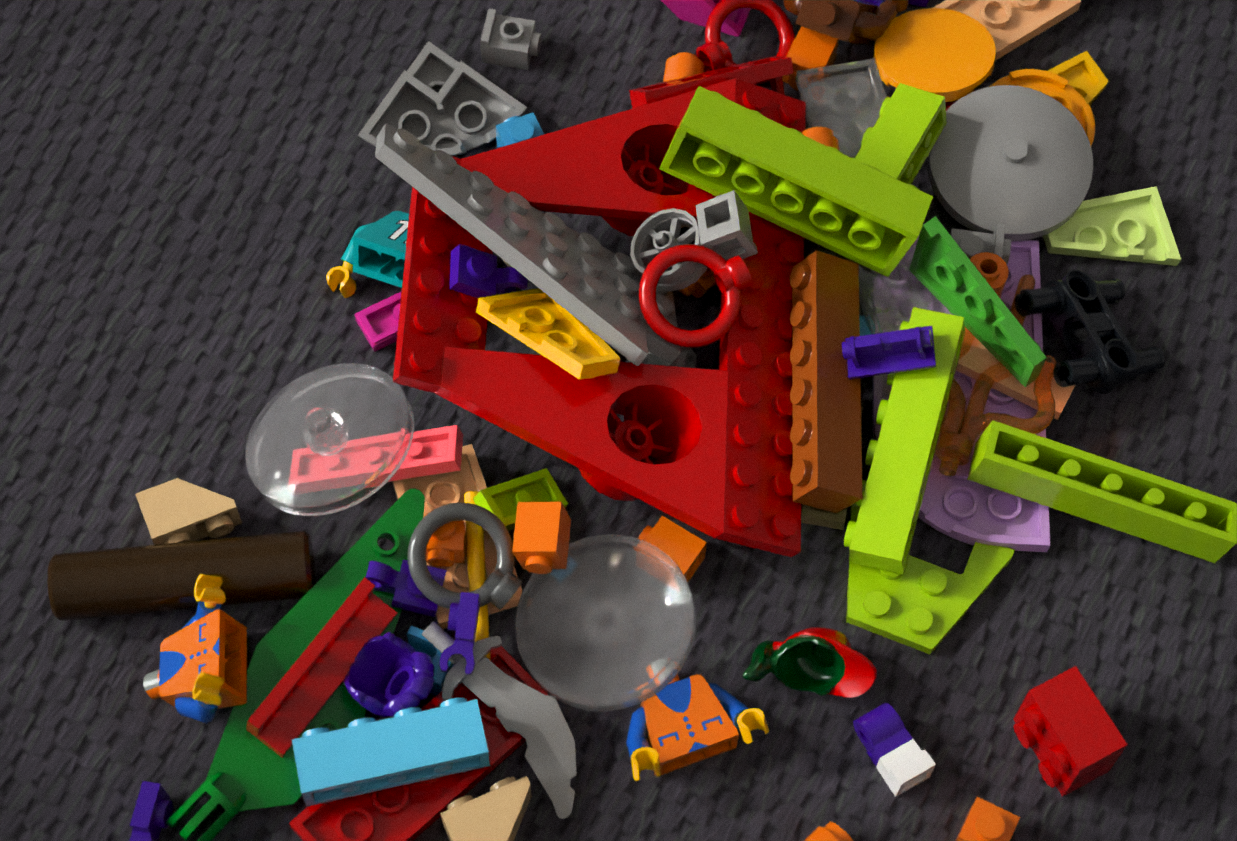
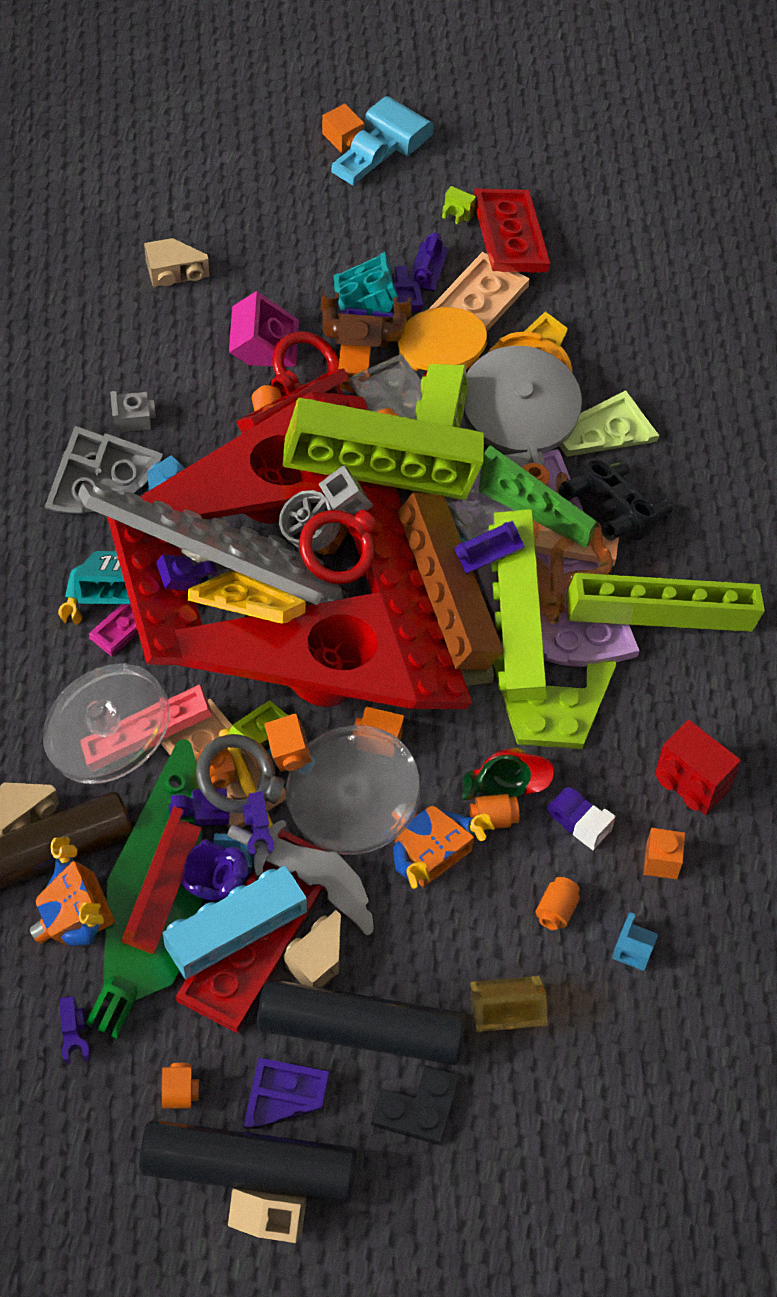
camera: 20 degrees left, 5 degrees down
(783, 705) = (500, 808): none -> orange brick

